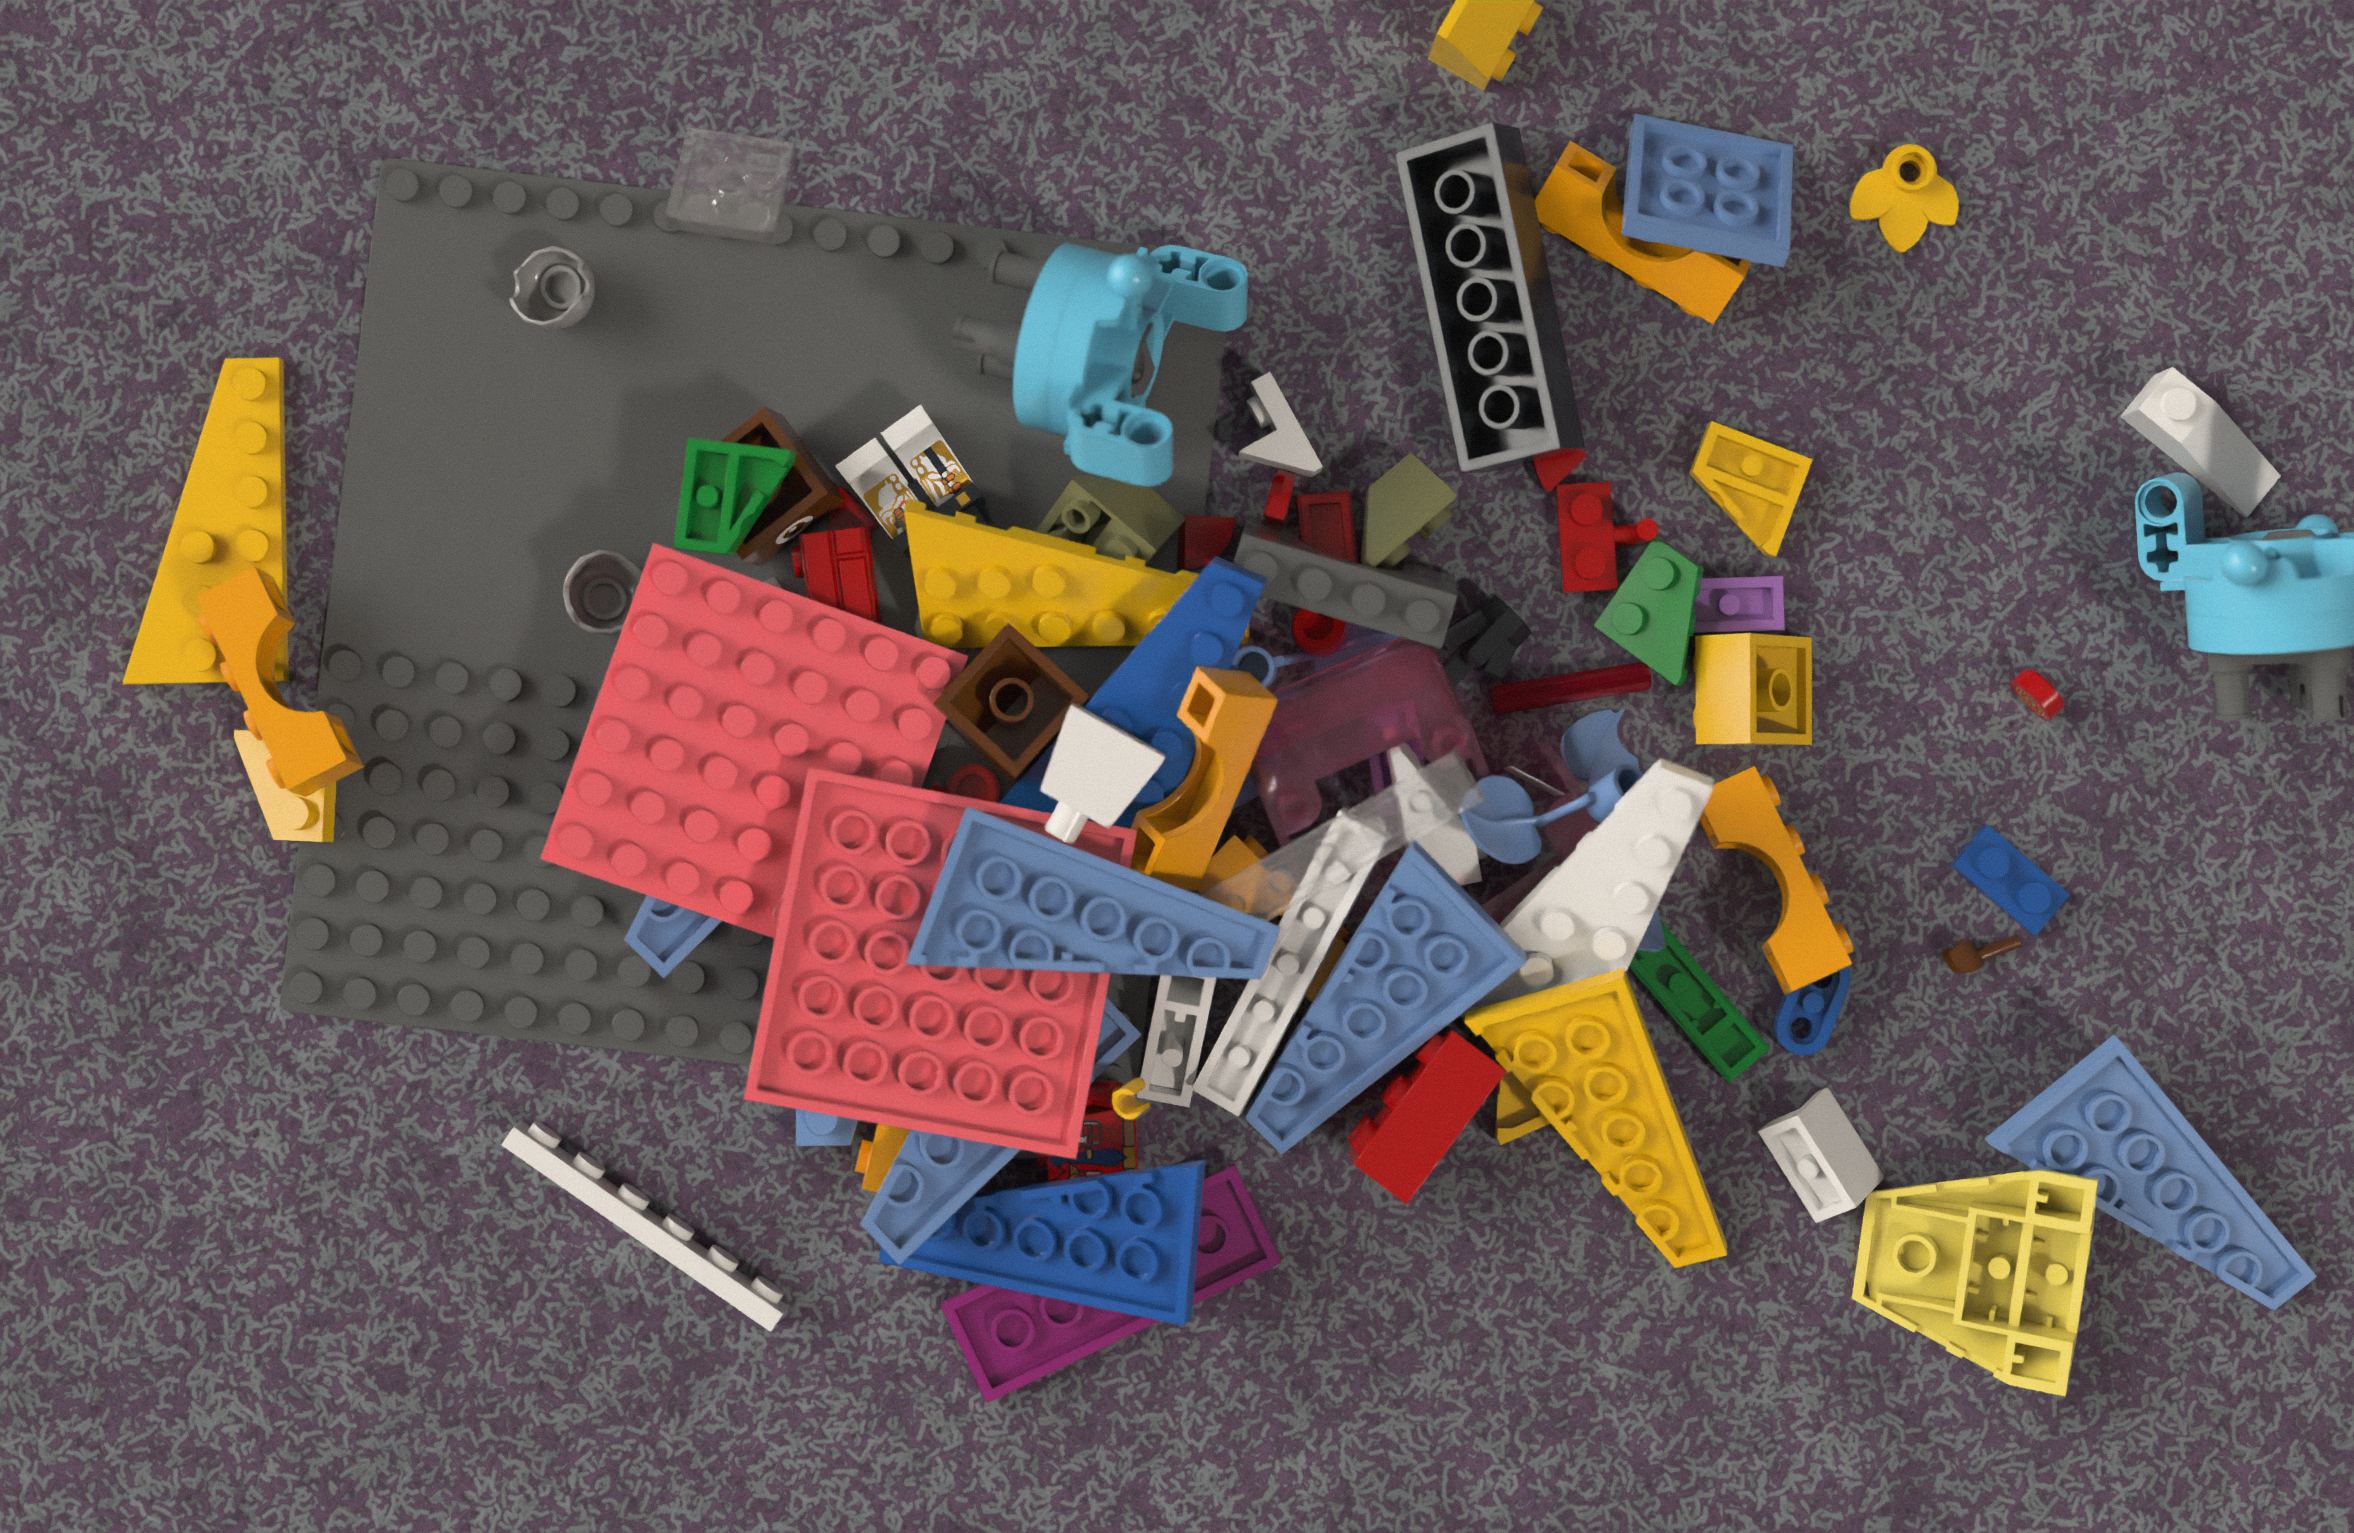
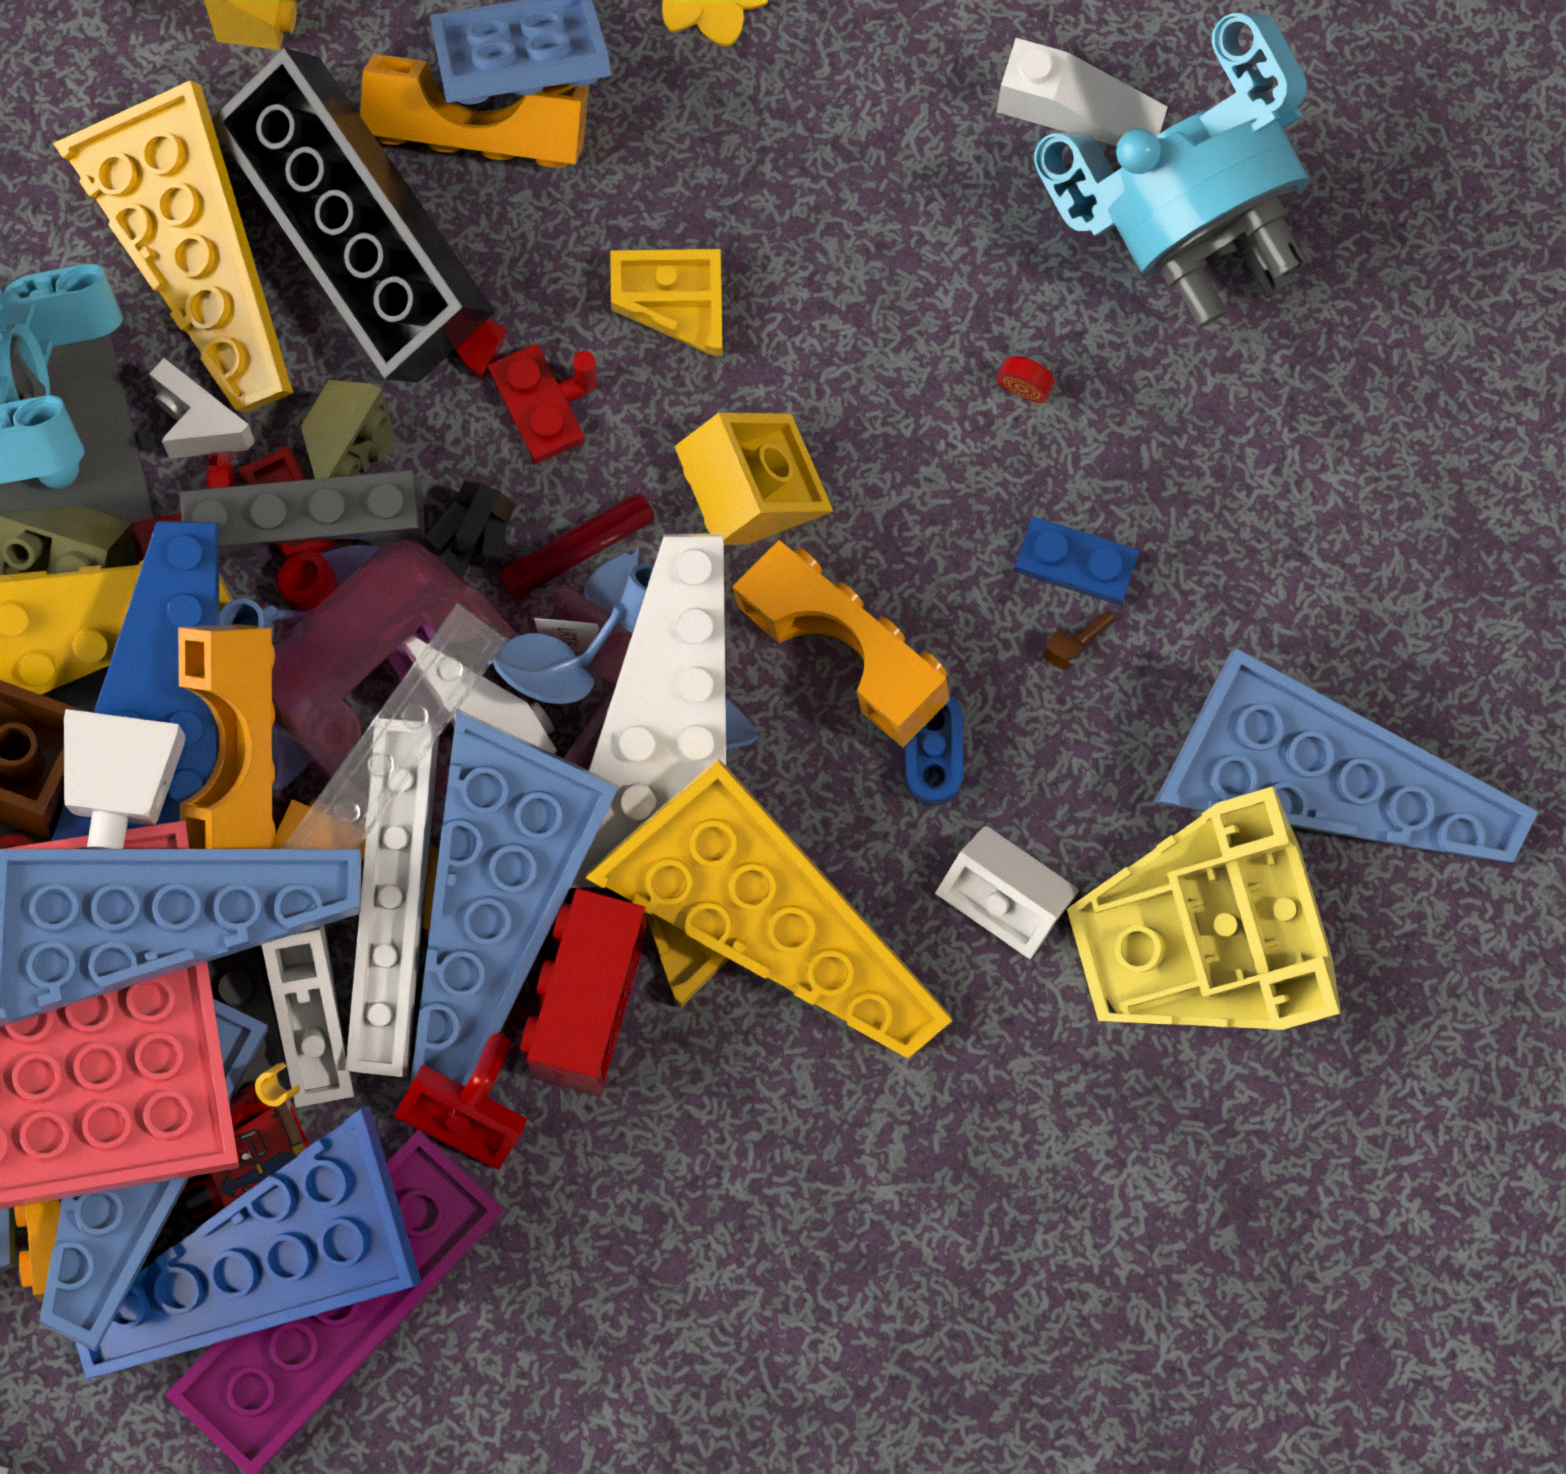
camera: 20 degrees left, 15 degrees down
(1278, 1173) = (462, 1113): none -> red plate
(1333, 208) = (172, 195): none -> yellow wing
(1656, 609) = (626, 437): green wing -> none
(1698, 1007) = (818, 792): green plate -> none
(1740, 605) = (682, 410): medium lavender plate -> none

